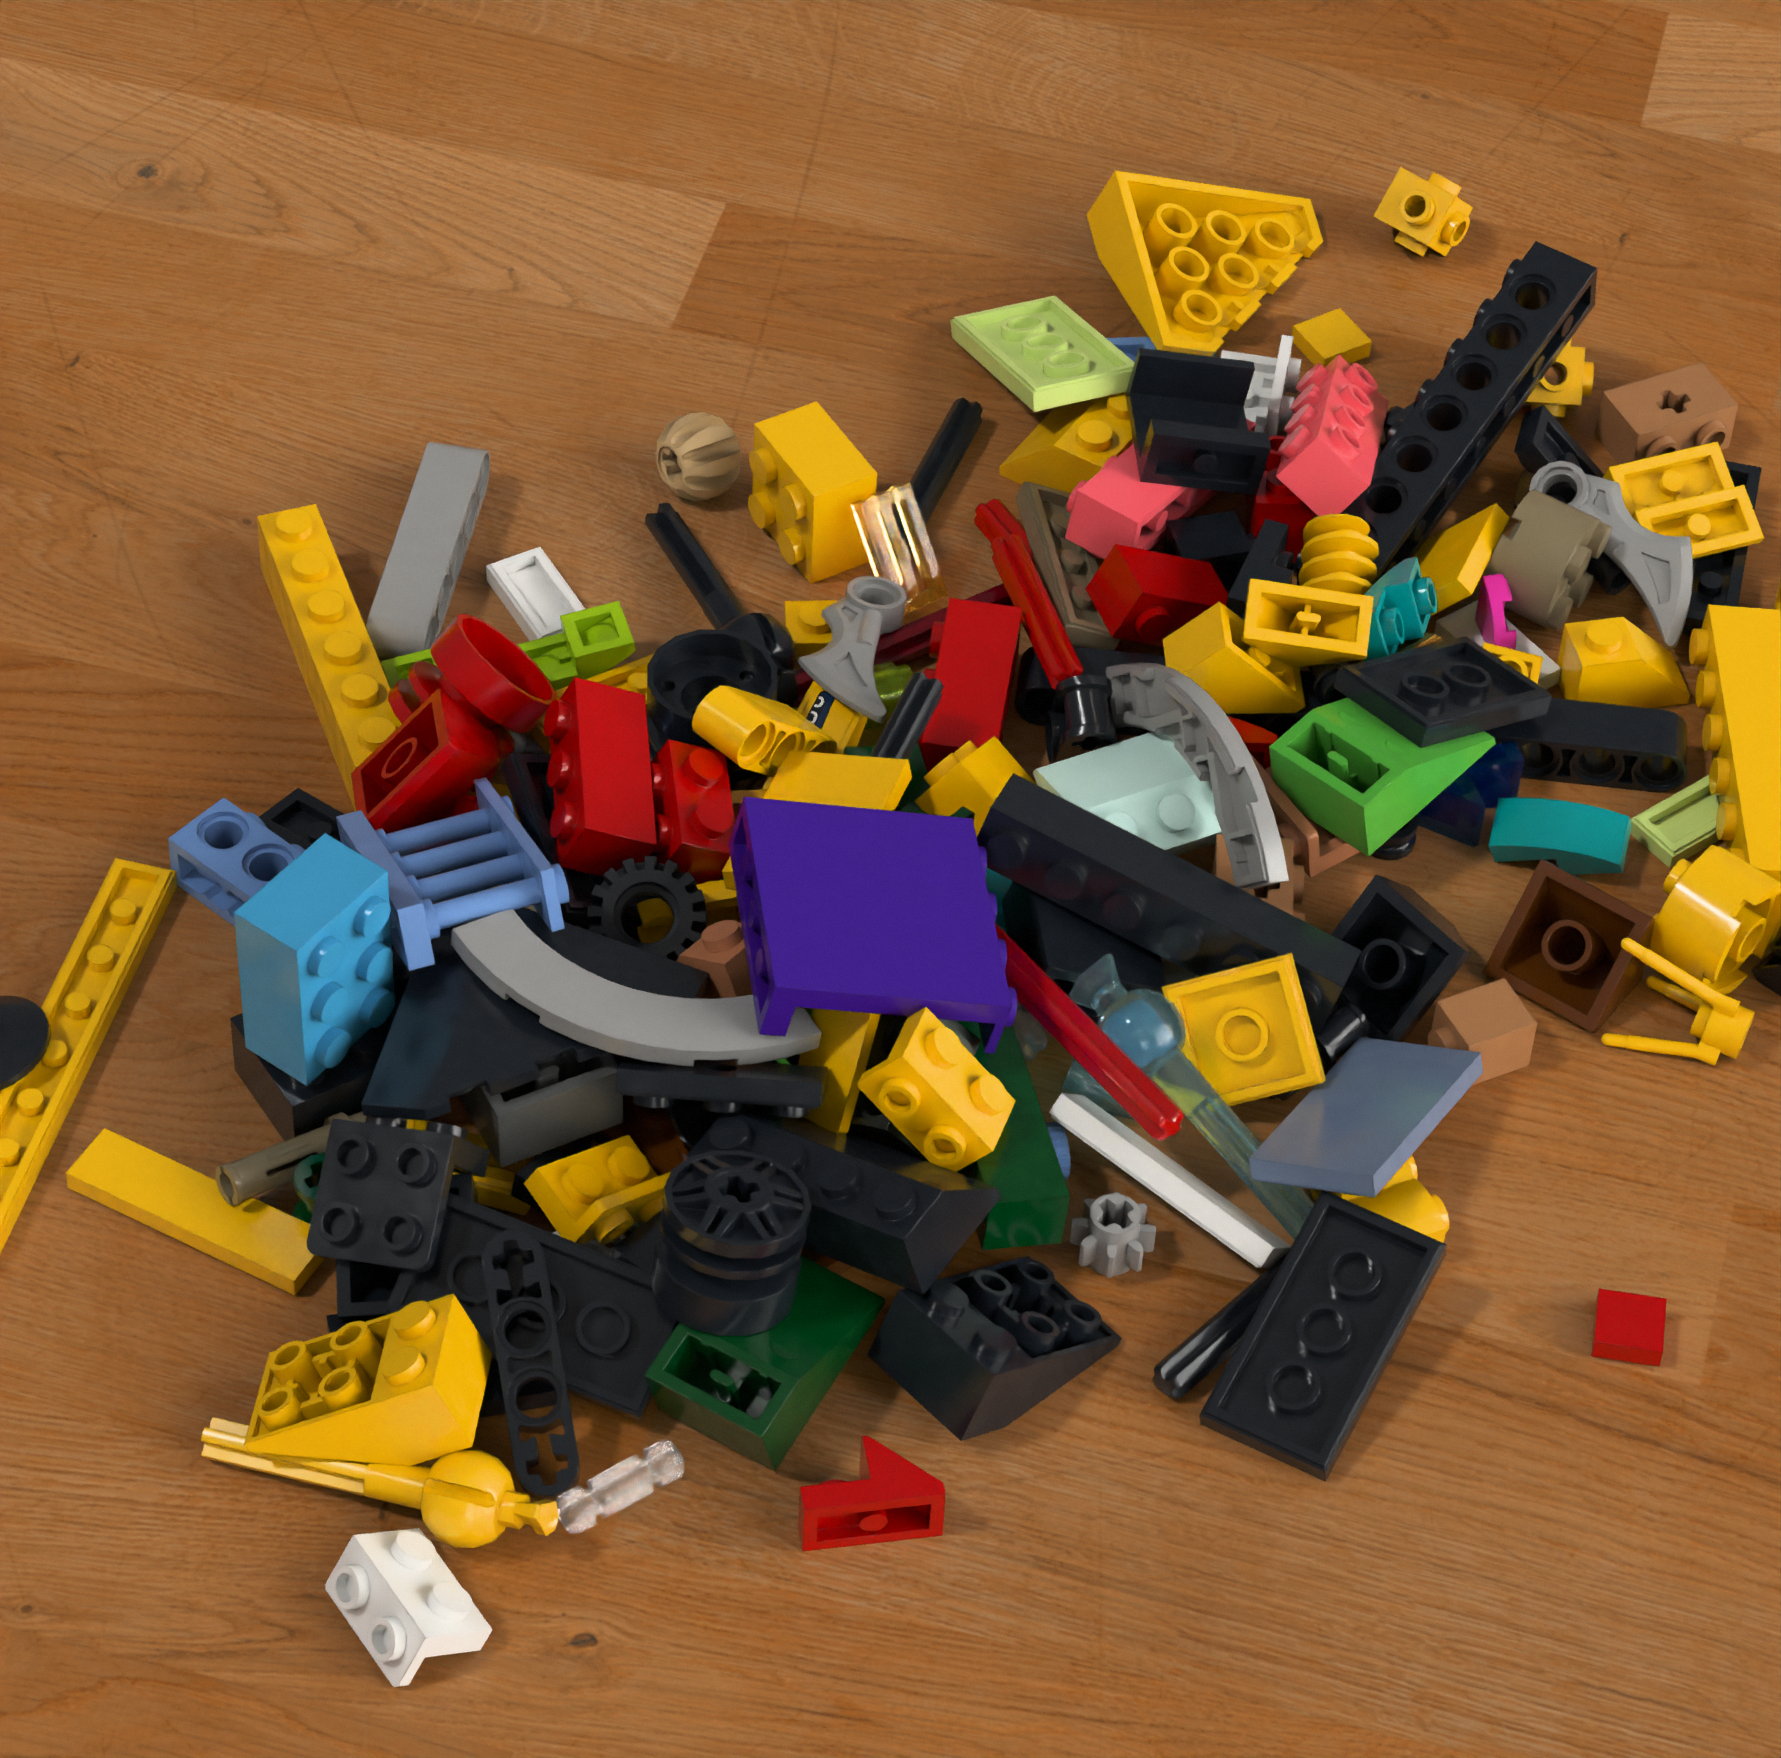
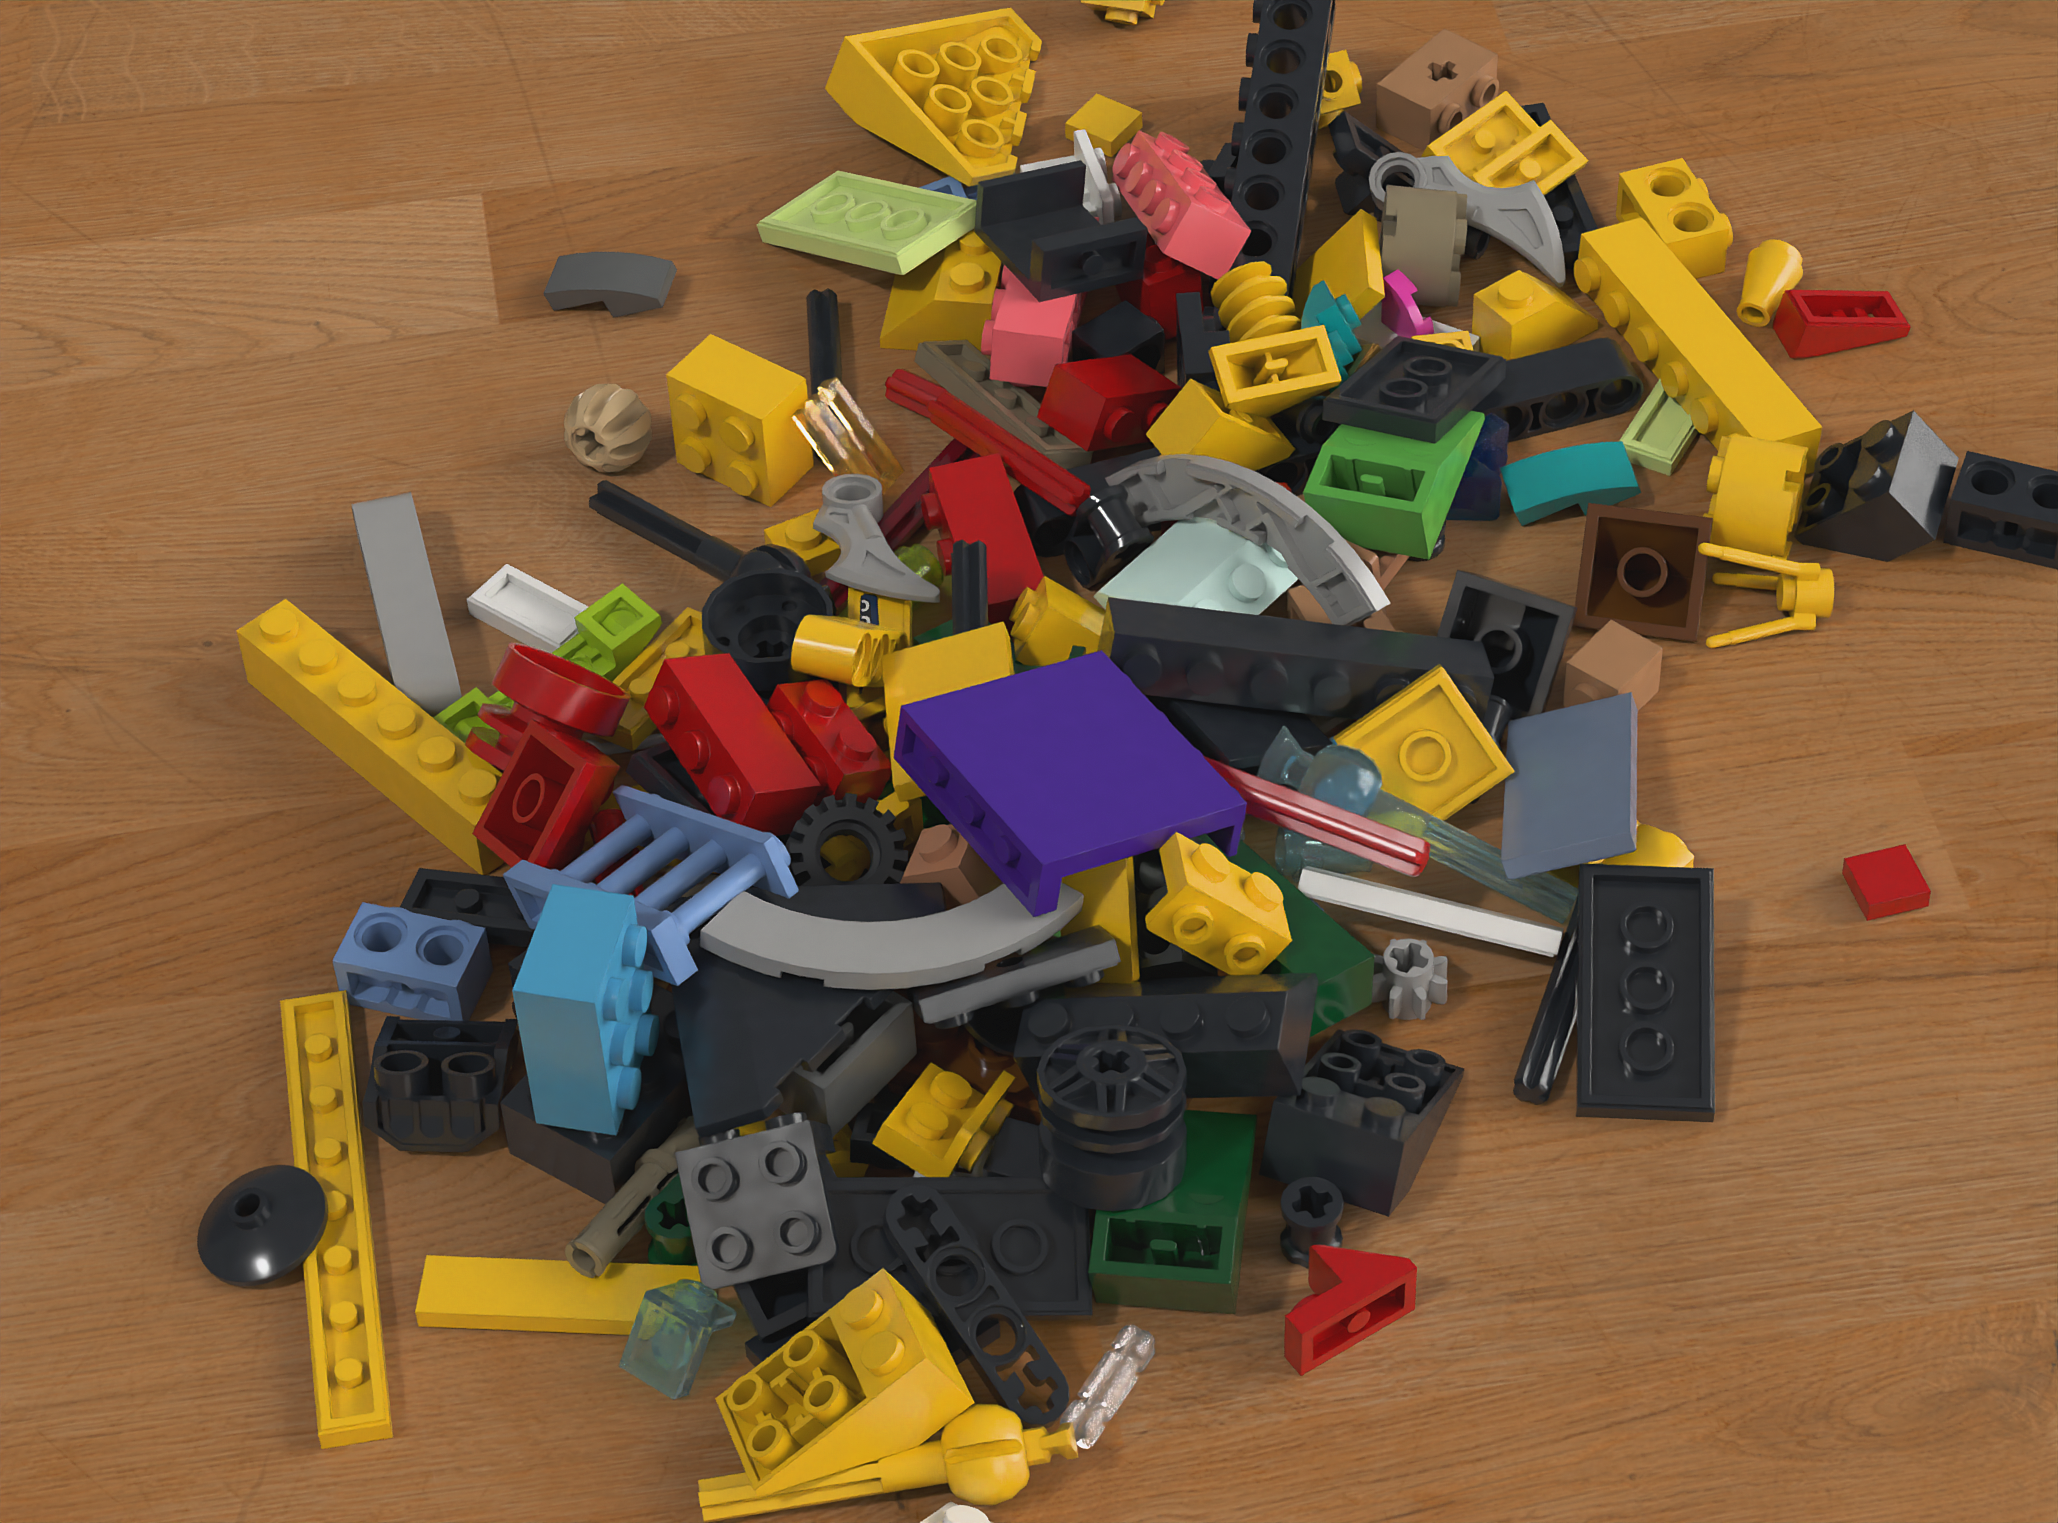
camera: 20 degrees left, 0 degrees up
(185, 983) = (439, 1082): none -> black slope
(265, 1281) = (673, 1335): none -> clear light blue bracket
(792, 324) = (621, 280): none -> dark grey slope
(887, 1408) = (1312, 1213): none -> black bush

